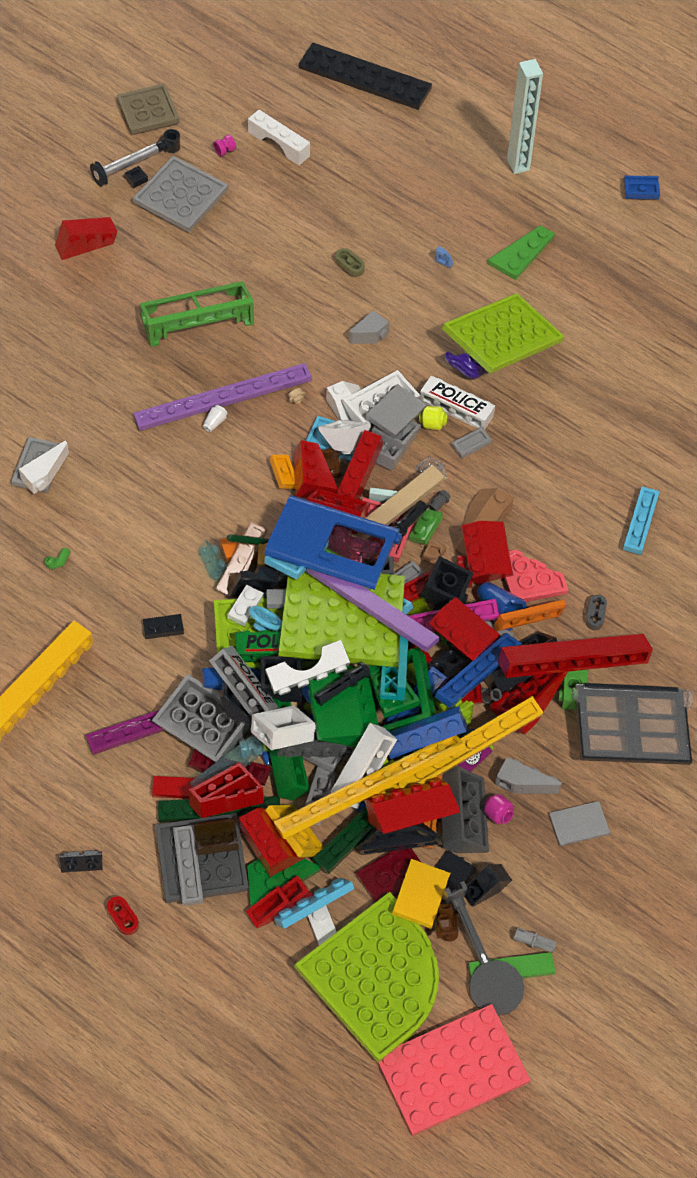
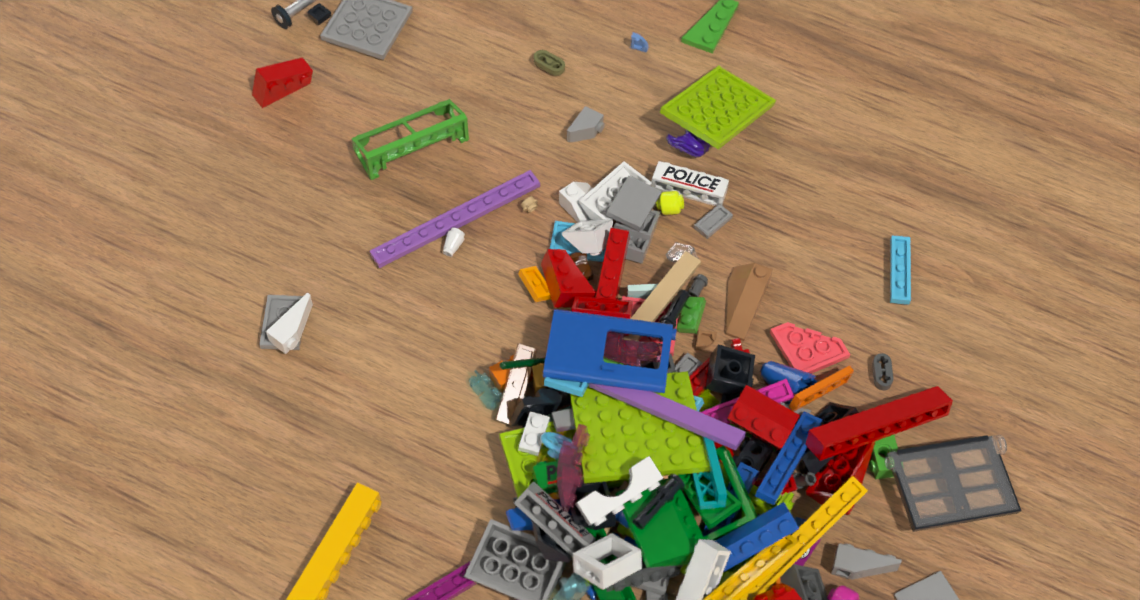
camera: 10 degrees left, 0 degrees up
(53, 563) = (326, 421): bright green arm -> none
(163, 626) = (450, 470): black plate -> none
(265, 643) = (568, 474): none -> clear pink slope
(487, 551) = (761, 329): red slope -> none

